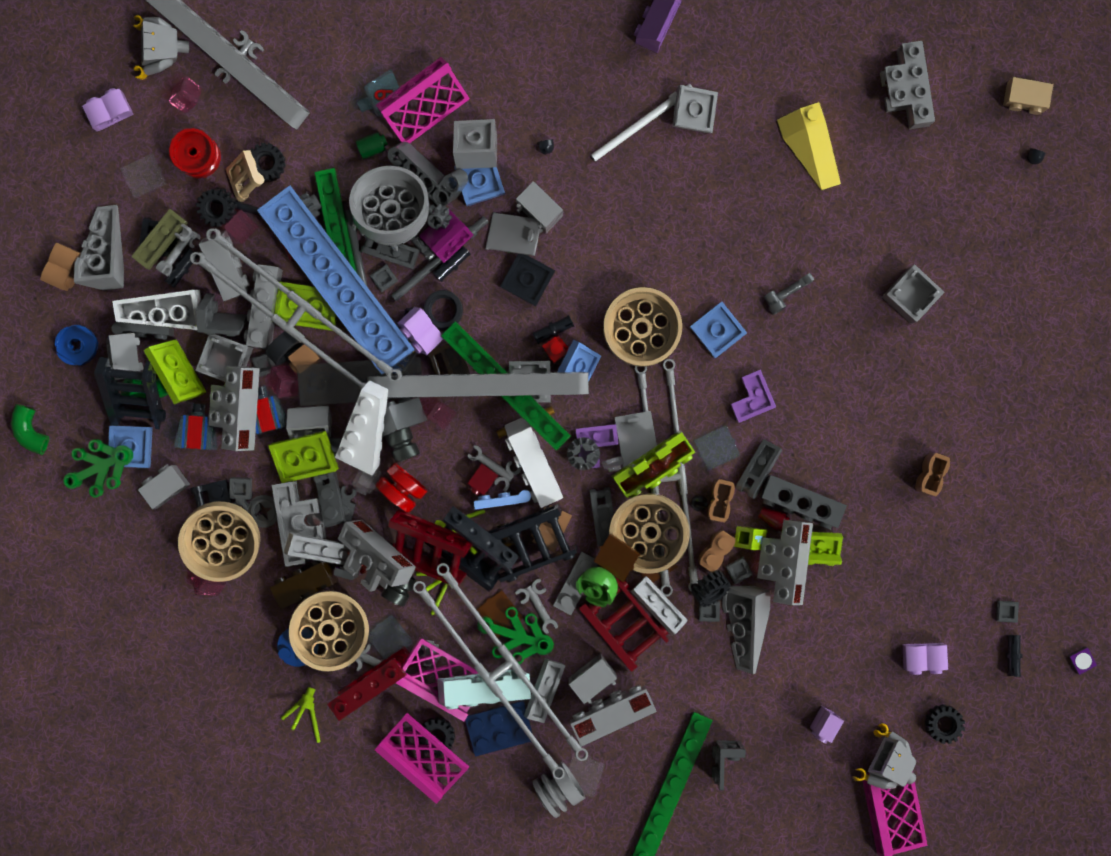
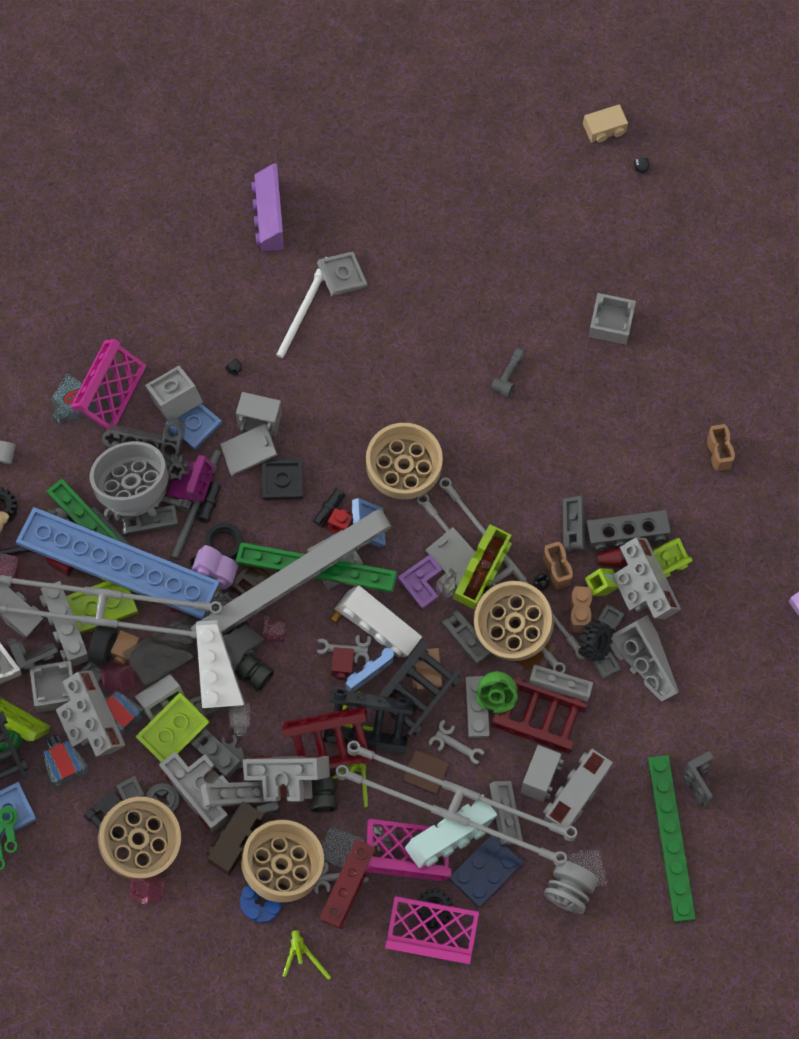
camera: 30 degrees left, 20 degrees down
(164, 486) = (59, 826): light grey brick -> none
(371, 144) = (83, 443): dark green brick -> none
(384, 278) = (157, 545): dark grey tile -> none
(399, 490) = (275, 704): red wheel -> none
(519, 636) = (454, 777): green plant -> none
(588, 445) = (416, 600): dark grey gear -> none
(617, 557) = (498, 655): reddish brown piece -> none
(717, 447) = (528, 528): clear light blue piece -> none
(718, 330) = (469, 433): medium blue plate -> none
(759, 398) = (537, 469): medium lavender plate -> none
(809, 139) = (451, 247): light yellow wedge -> none
(826, 725) = (766, 698): lavender brick -> none
(909, 86) = (506, 165): light grey piece -> none

